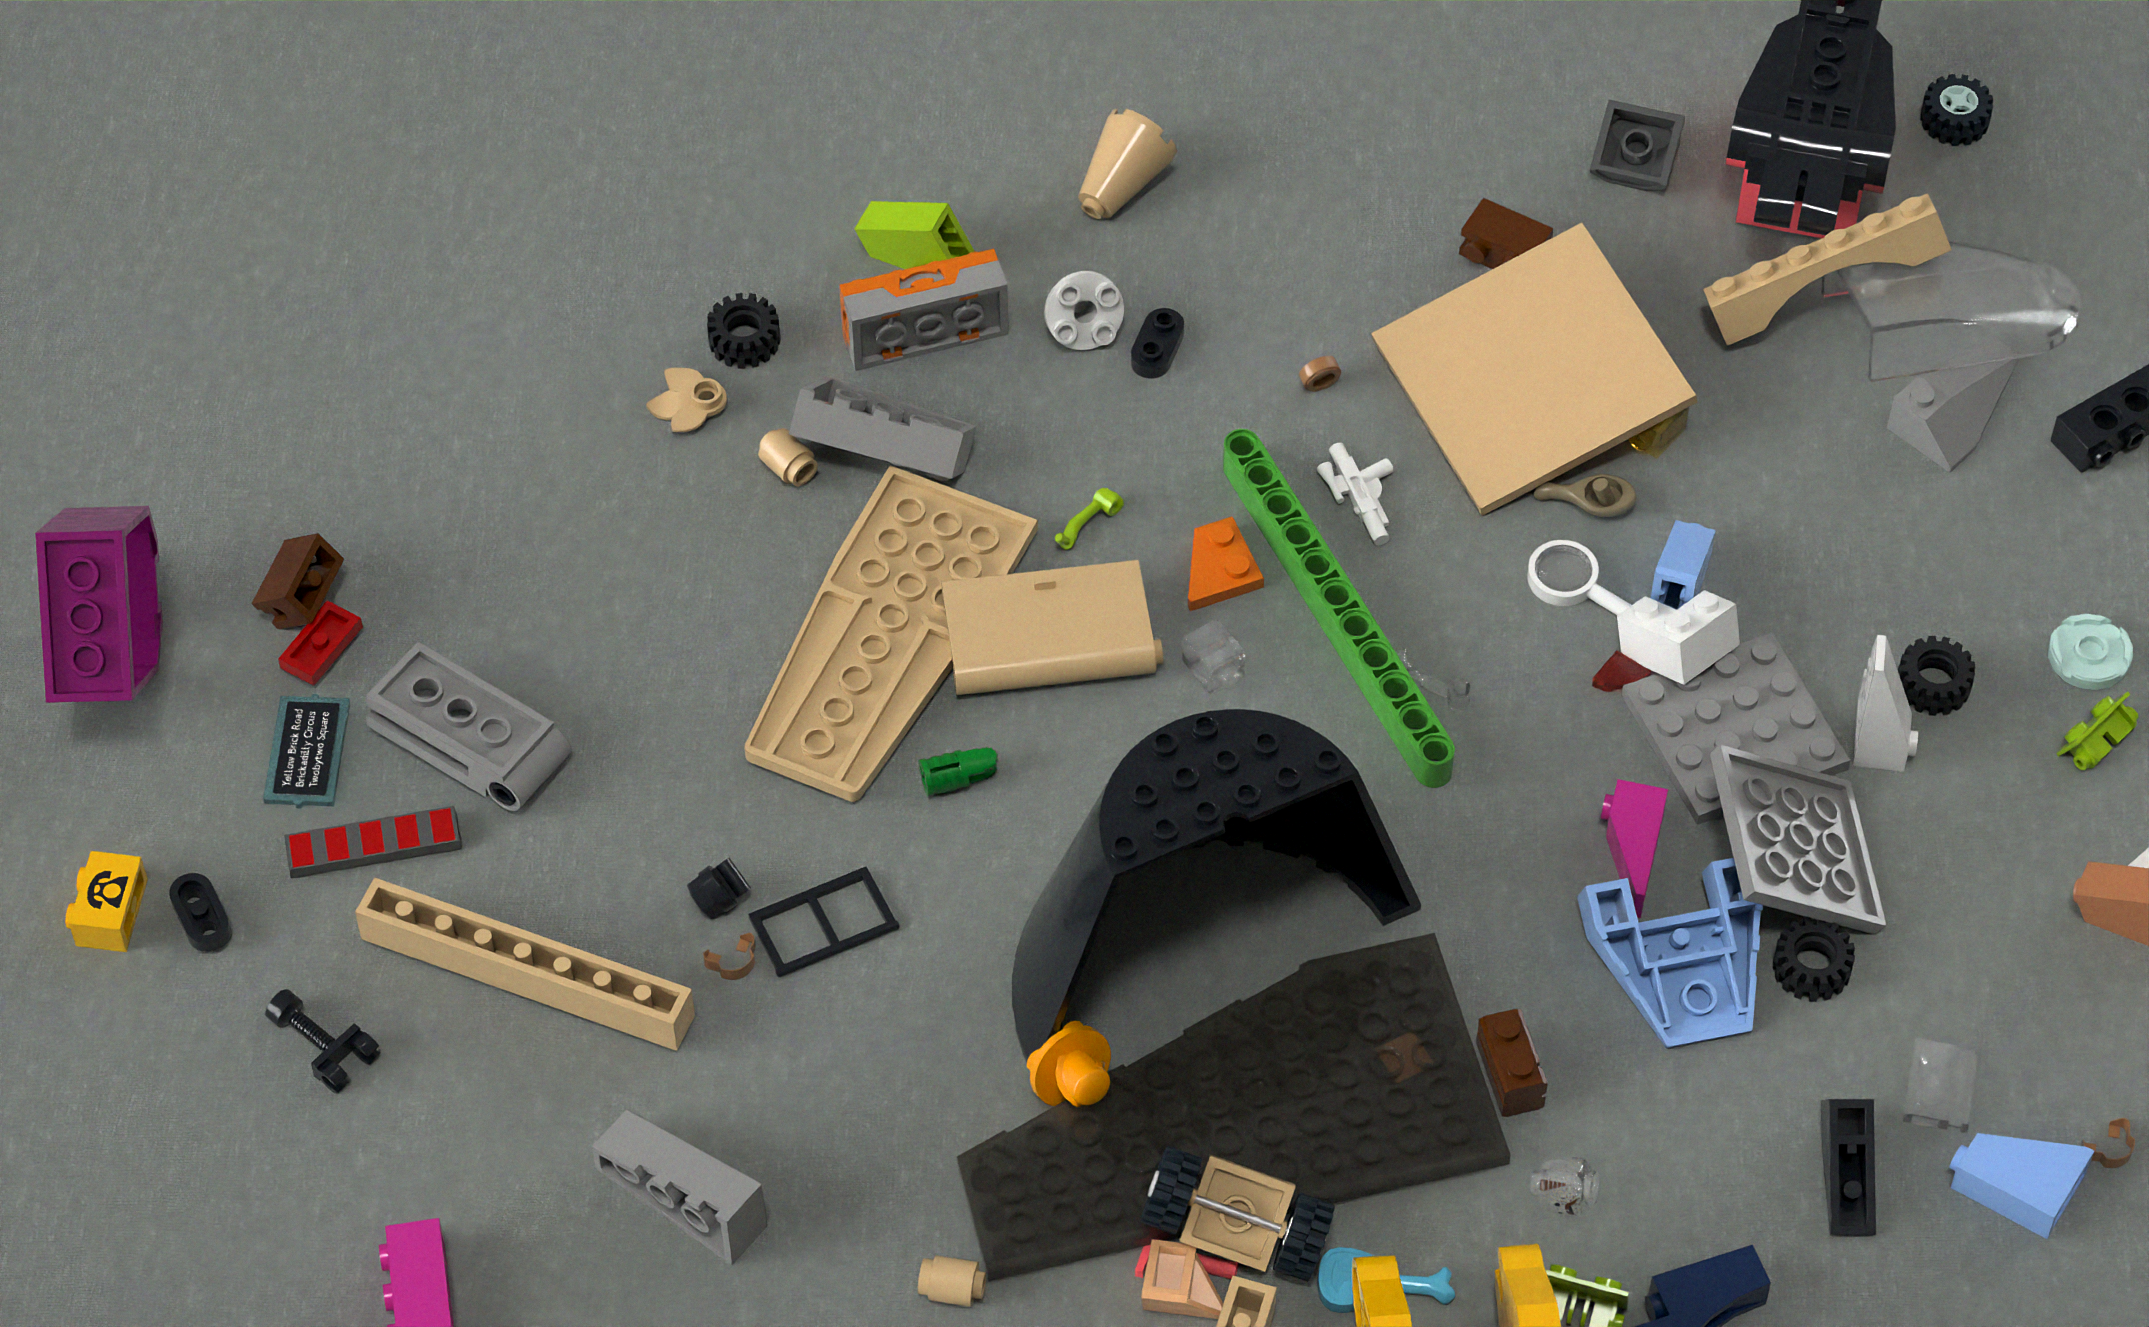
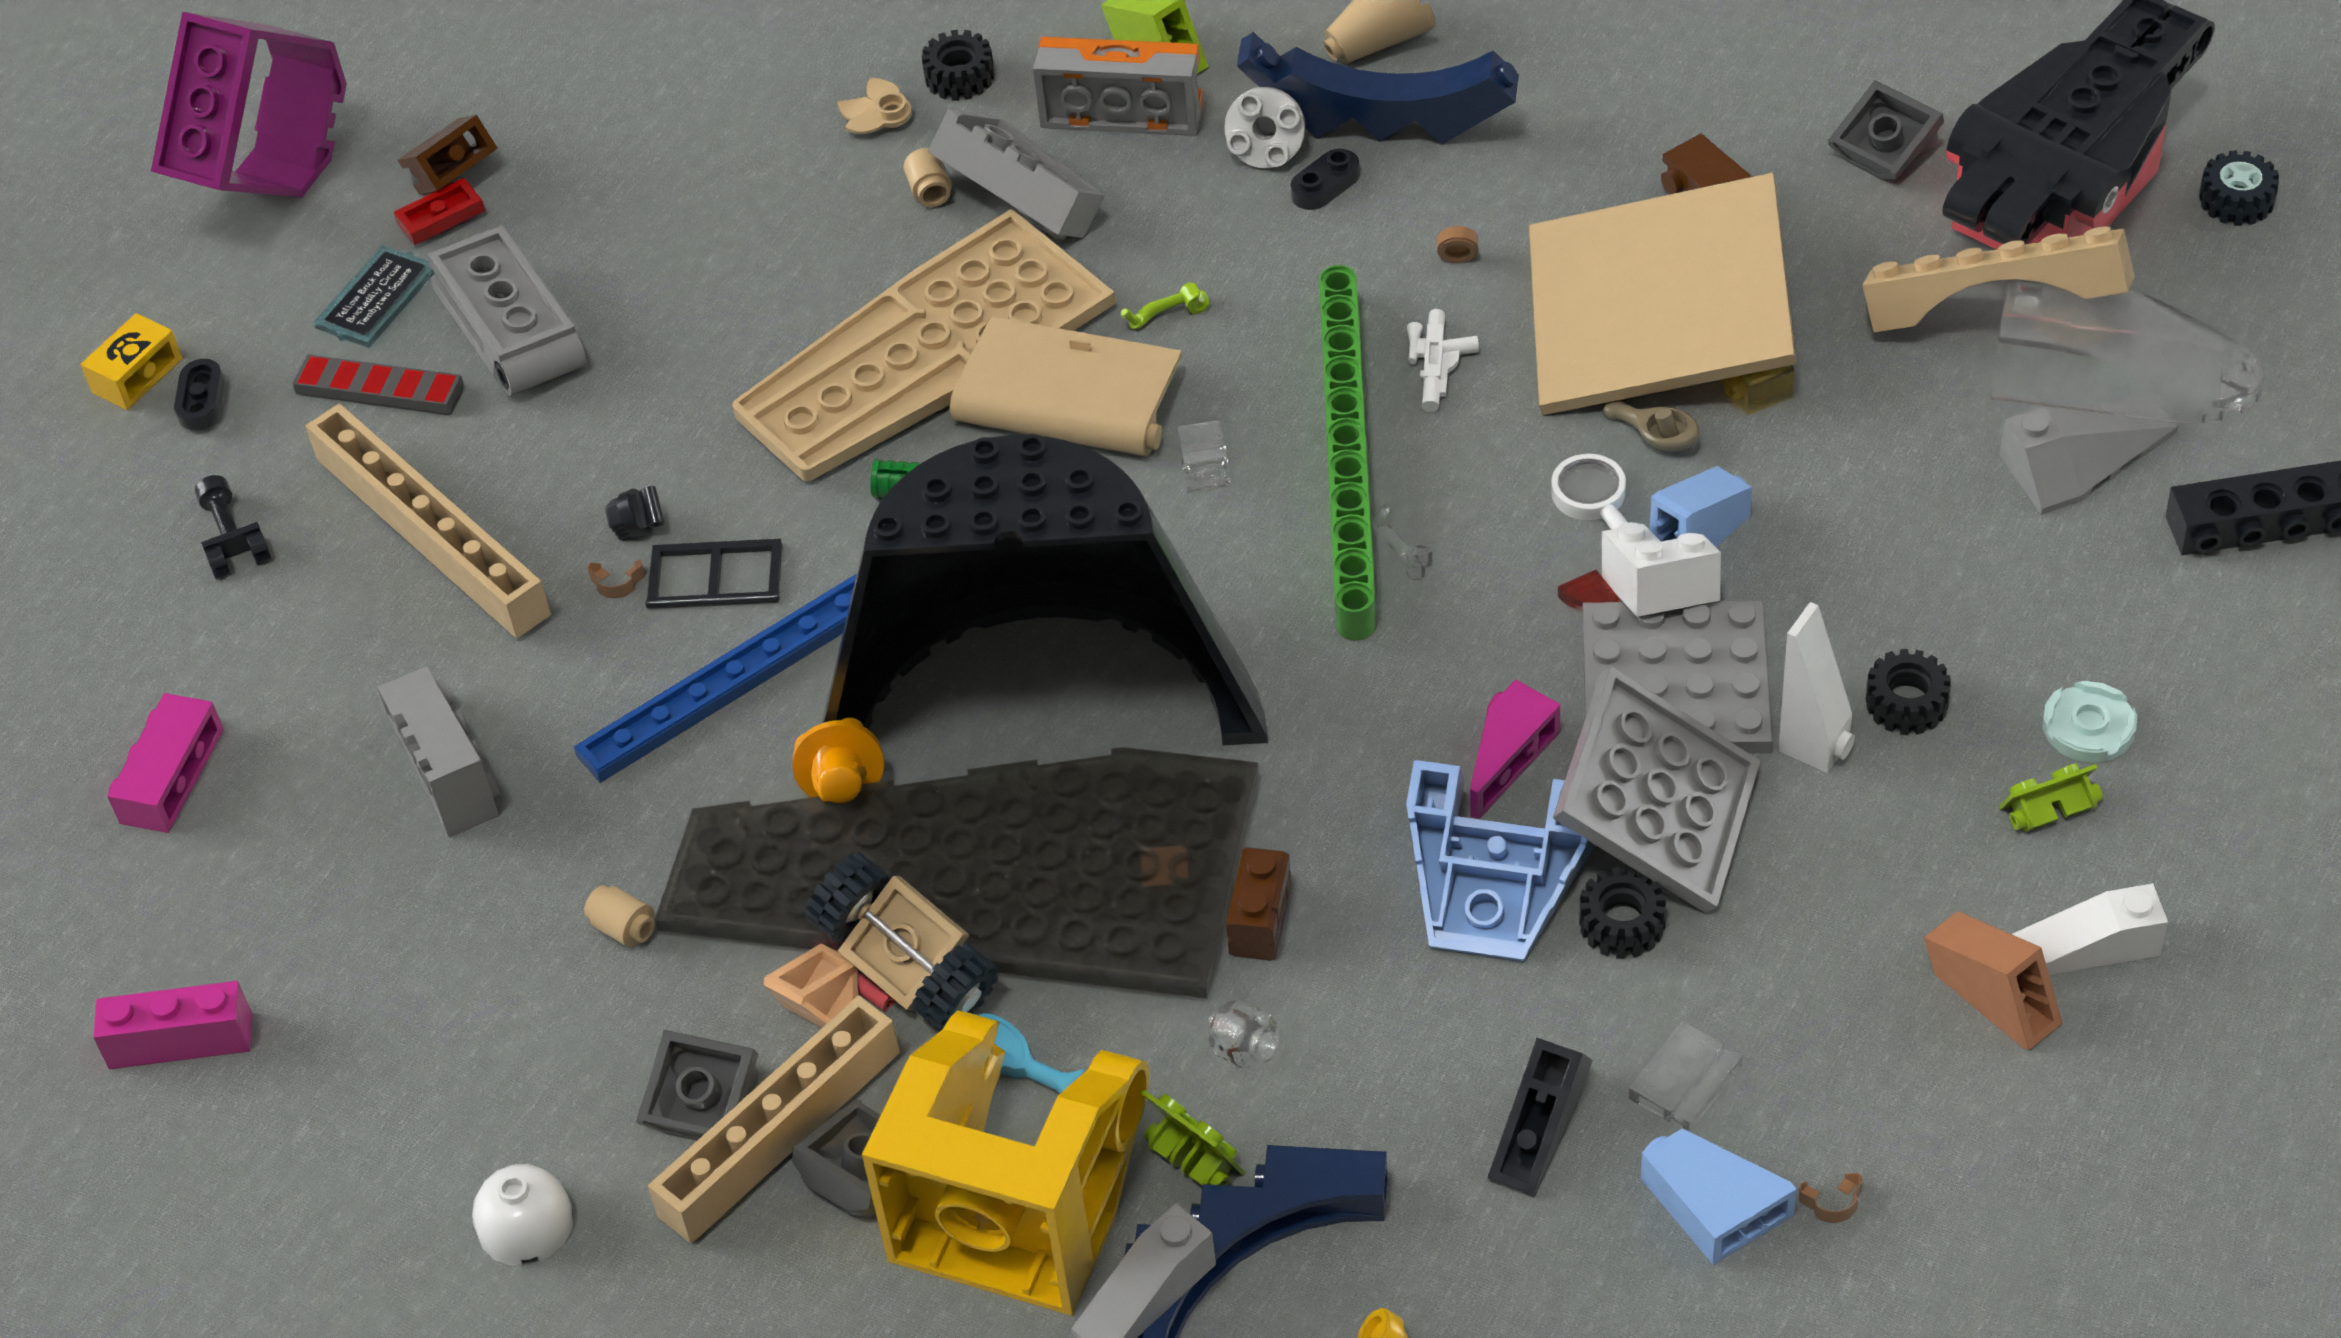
camera: 30 degrees right, 5 degrees down
(904, 1015) = (716, 684): none -> blue tile
(1183, 250) = (1383, 103): none -> dark blue arch
(1221, 565) = (1262, 383): orange wing -> none

